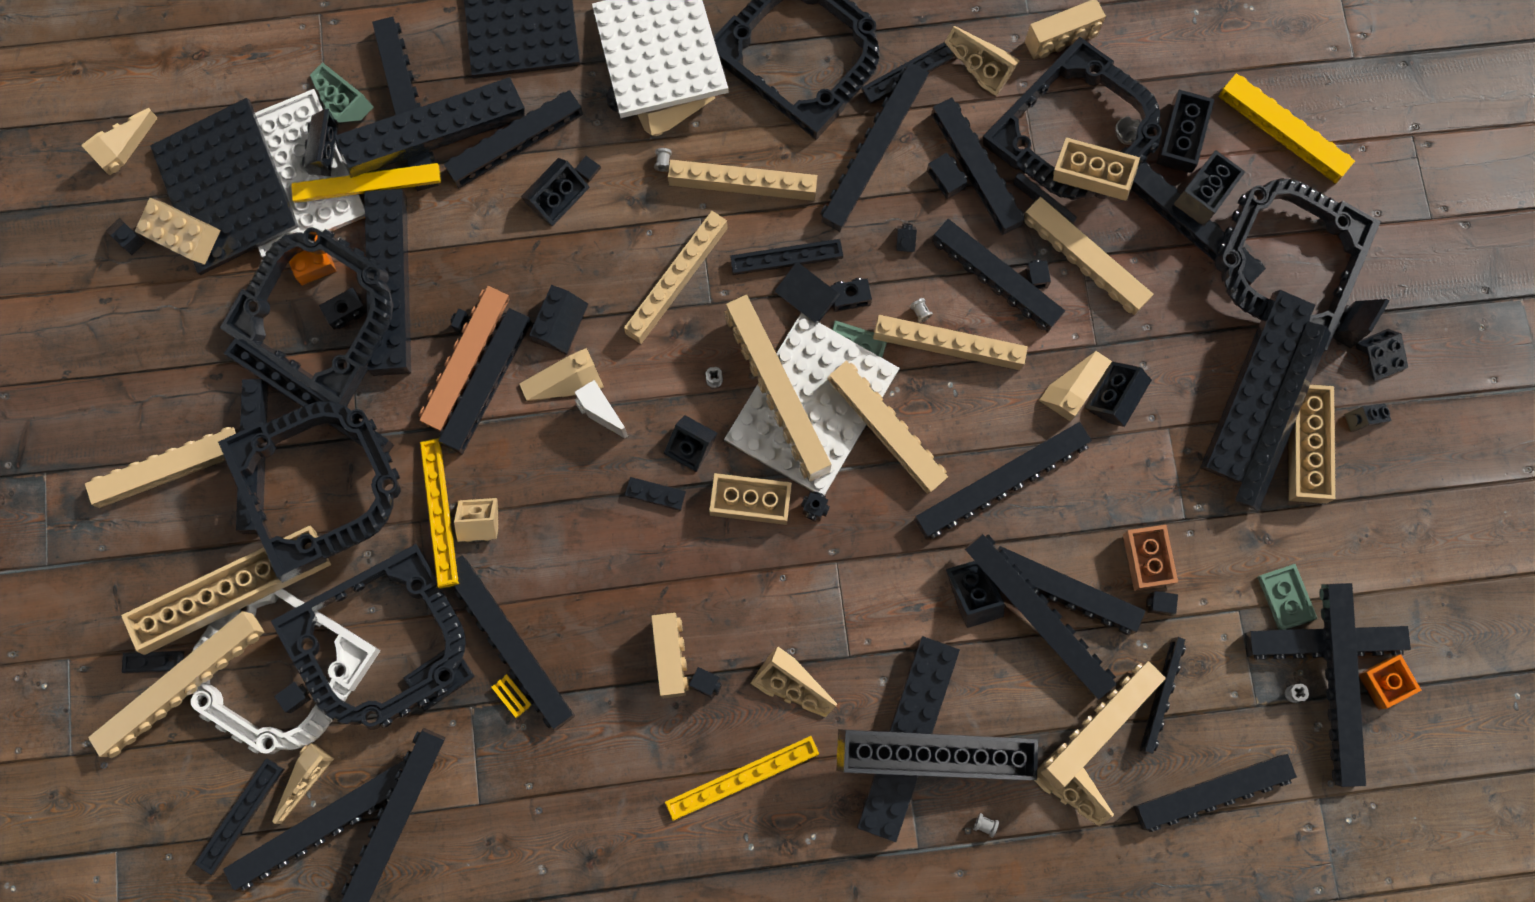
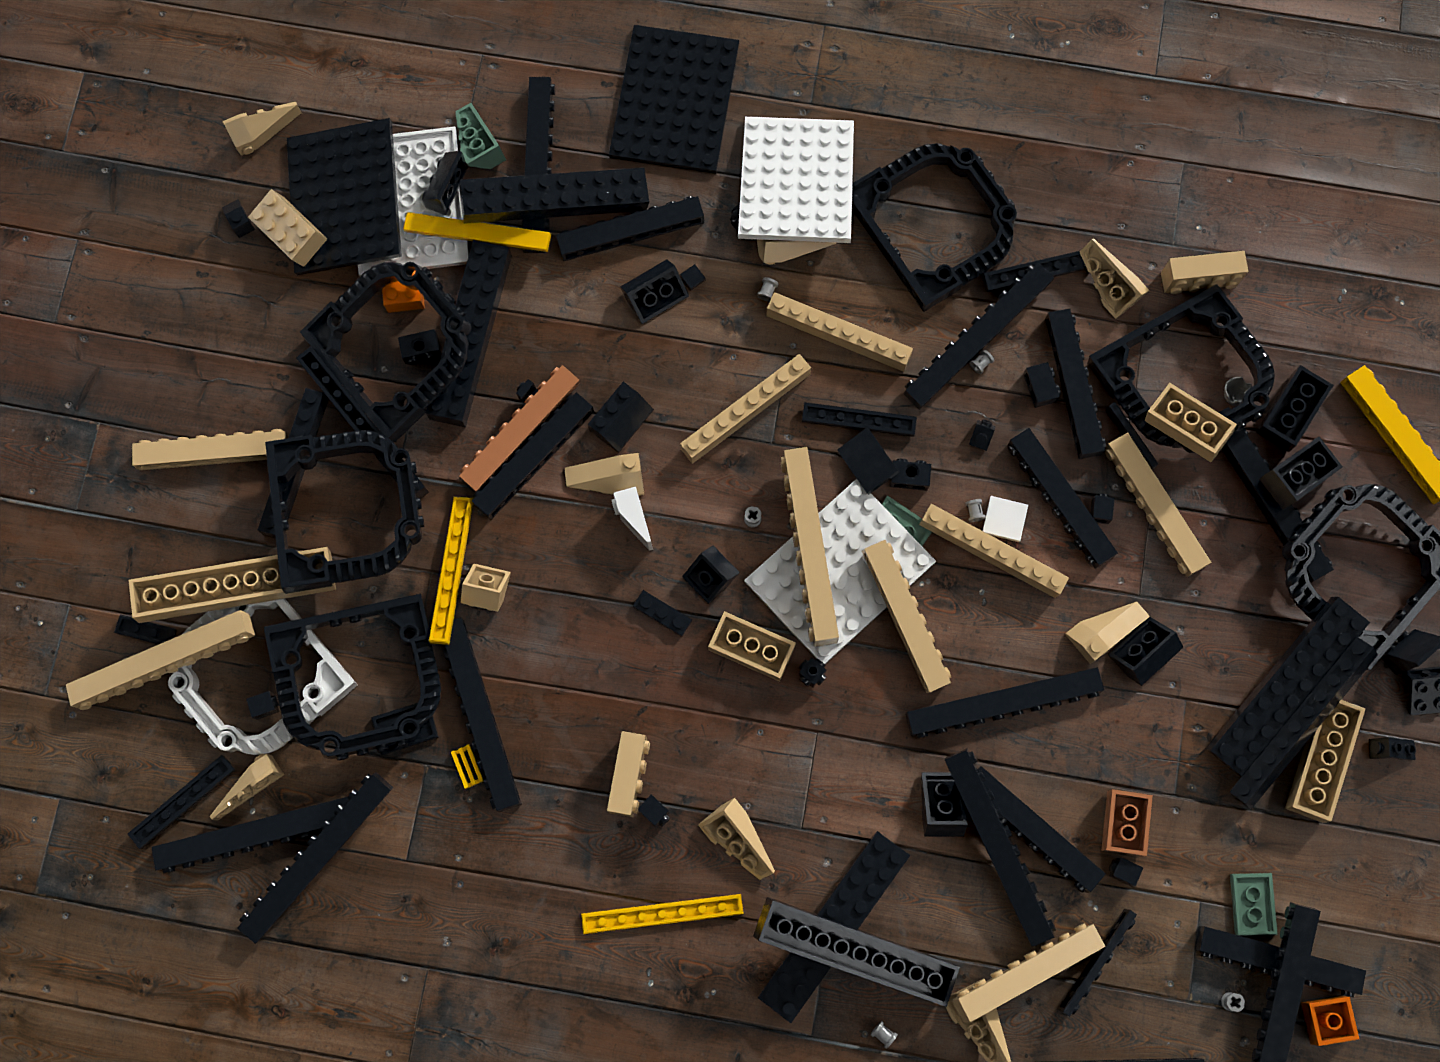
camera: 20 degrees right, 0 degrees up
(885, 170) = (981, 361): none -> light grey bush
(951, 310) = (1005, 518): none -> white tile

